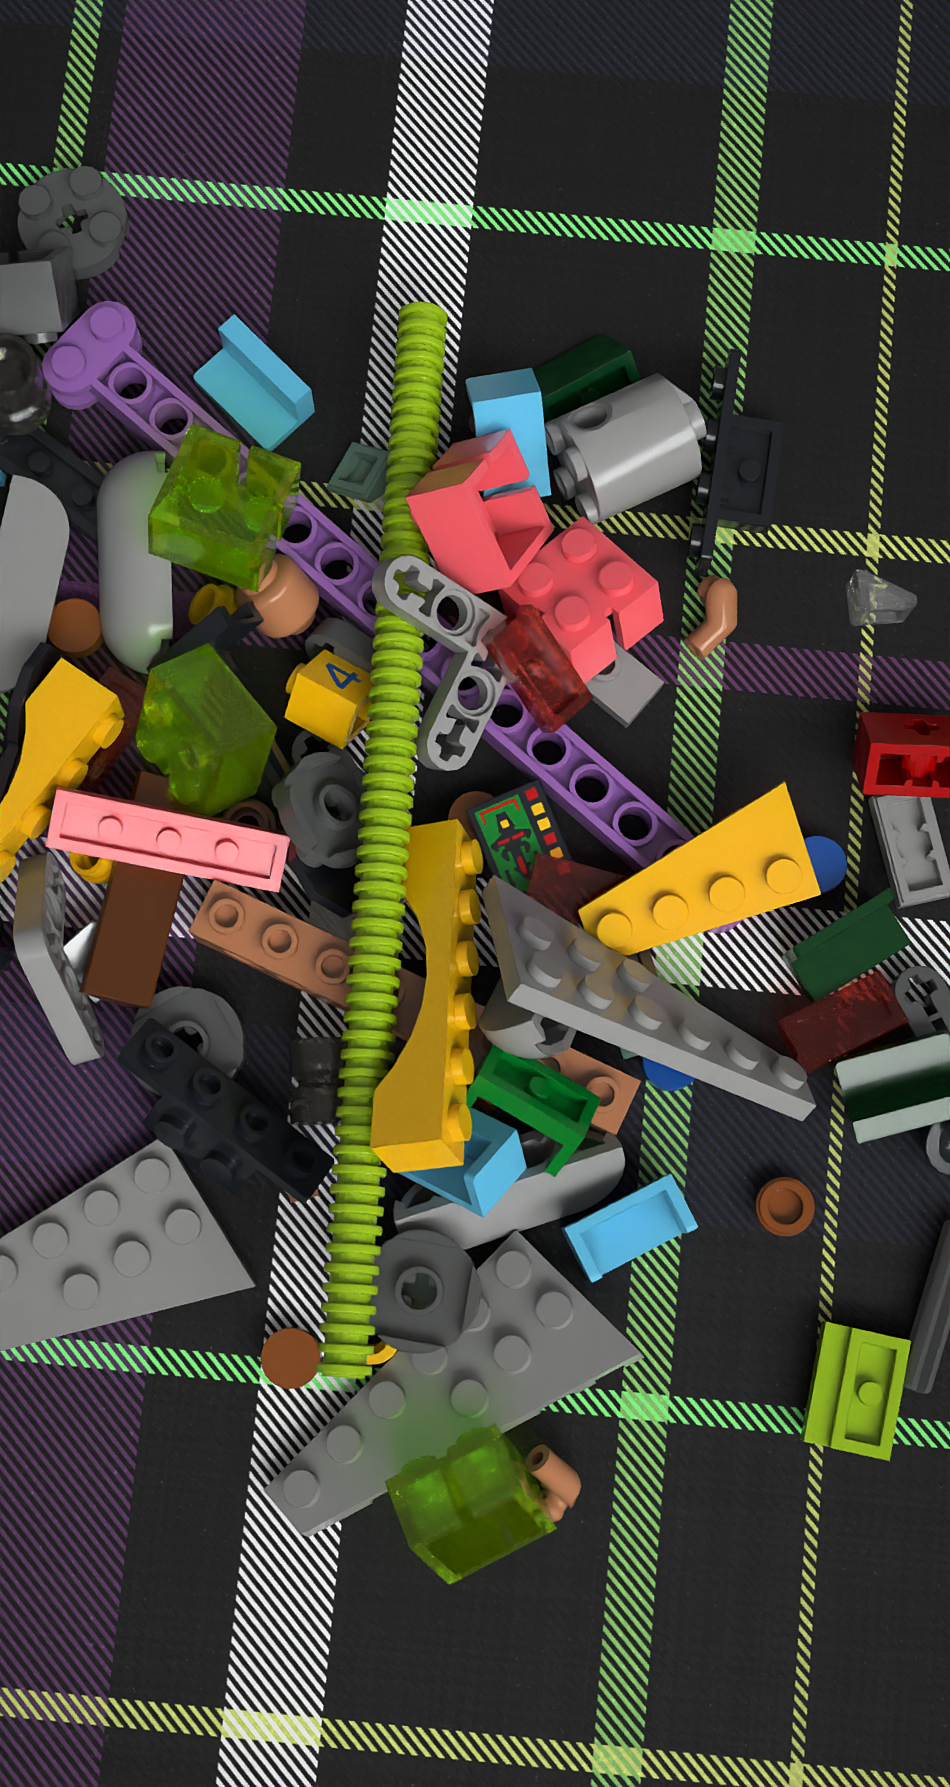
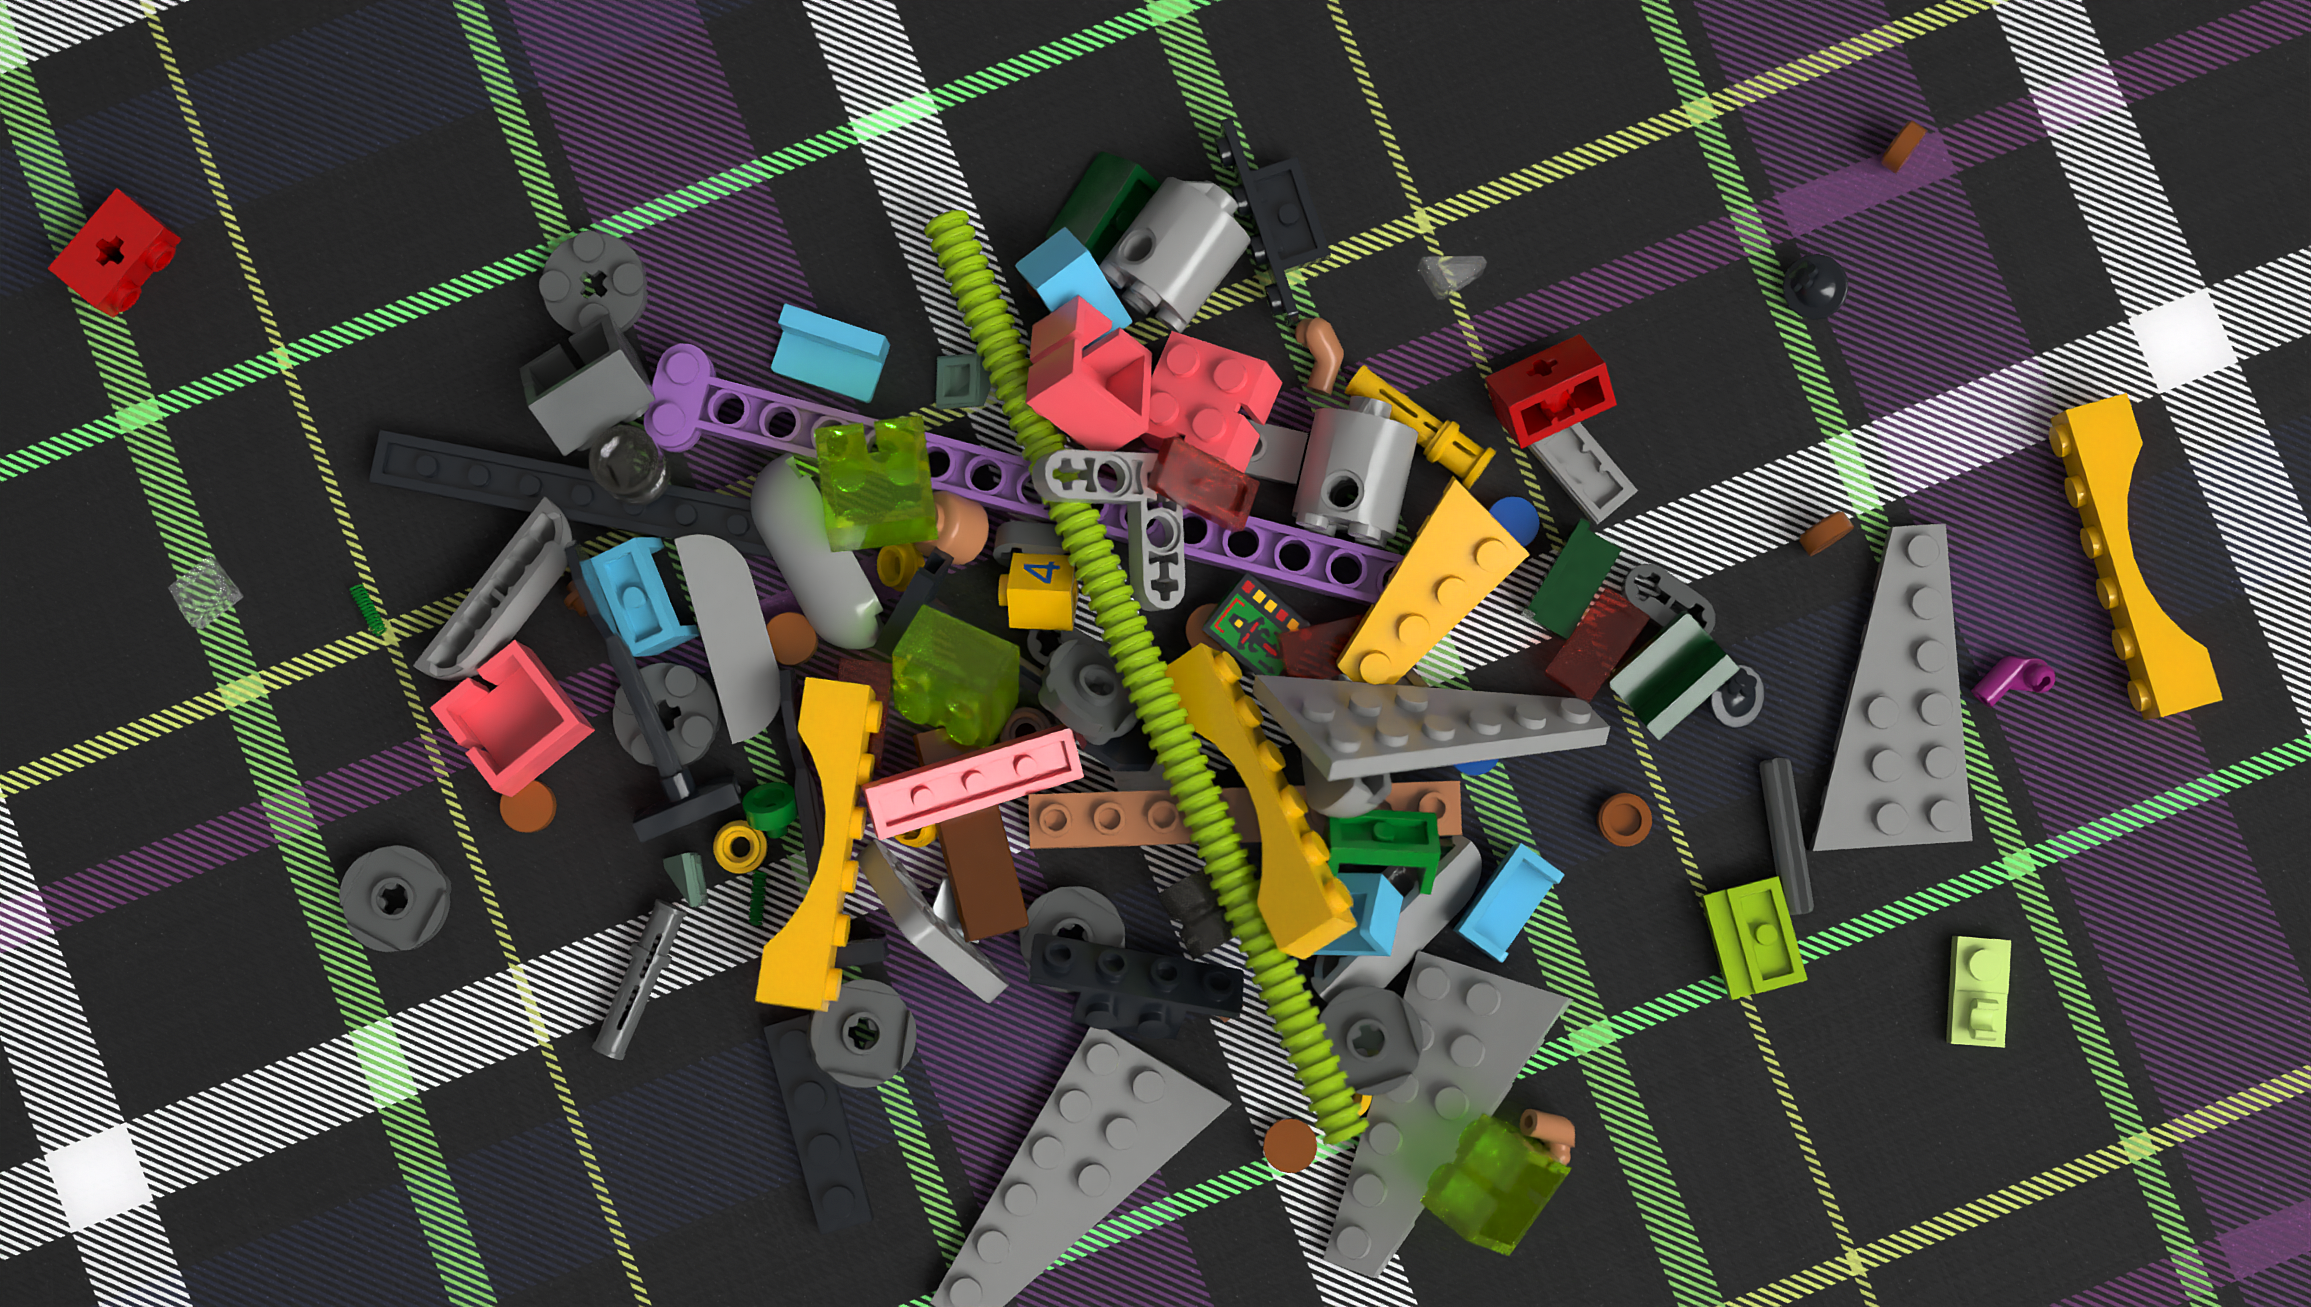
camera: 20 degrees left, 5 degrees up
(690, 735) = (1359, 454): none -> light grey cylinder
(787, 751) = (1440, 440): none -> yellow pin

